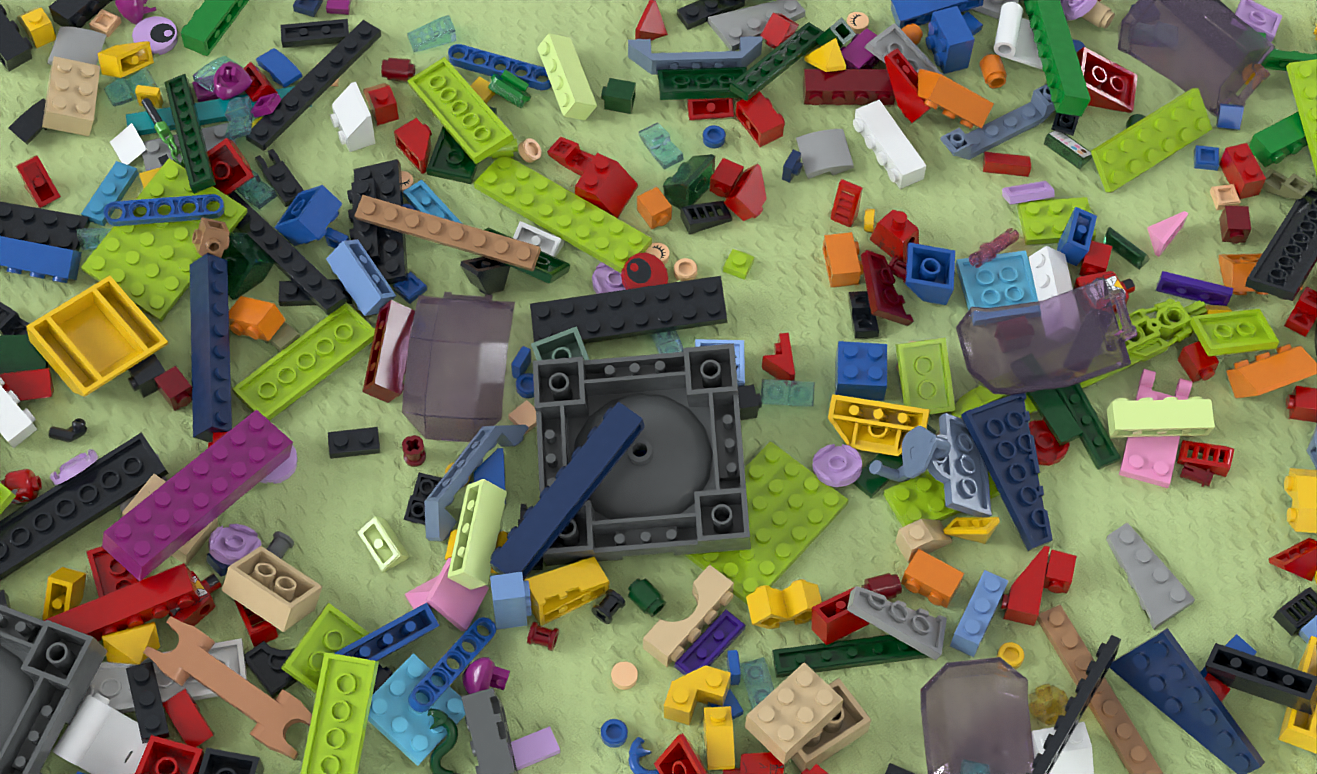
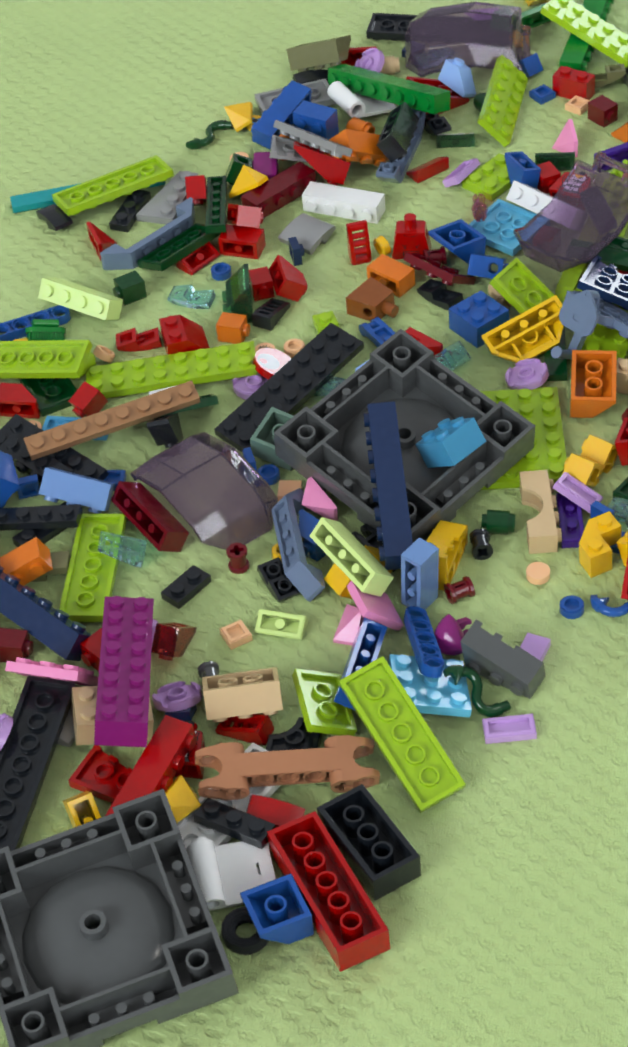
camera: 35 degrees left, 15 degrees down
(156, 443) = (52, 671): none -> bright pink plate
(288, 485) = (172, 639): none -> clear red slope
(341, 522) = (236, 634): none -> light nougat tile
(351, 367) = (133, 552): none -> clear light blue slope
(464, 191) = (87, 400): none -> red brick
(525, 449) = (318, 501): none -> bright pink slope
(661, 493) = (450, 442): none -> dark azure brick
(738, 626) = (576, 491): none -> lavender tile
(765, 323) = (376, 331): none -> blue plate
(782, 95) = (244, 215): none -> brick
(795, 275) = (371, 301): none -> dark orange torso
(871, 524) = (592, 382): none -> orange slope
(915, 58) = (312, 139): none -> light grey plate
(926, 319) = (481, 265): none -> blue torso
(1003, 107) = (398, 132): none -> black brick
(1140, 81) = (458, 77): none -> light blue slope

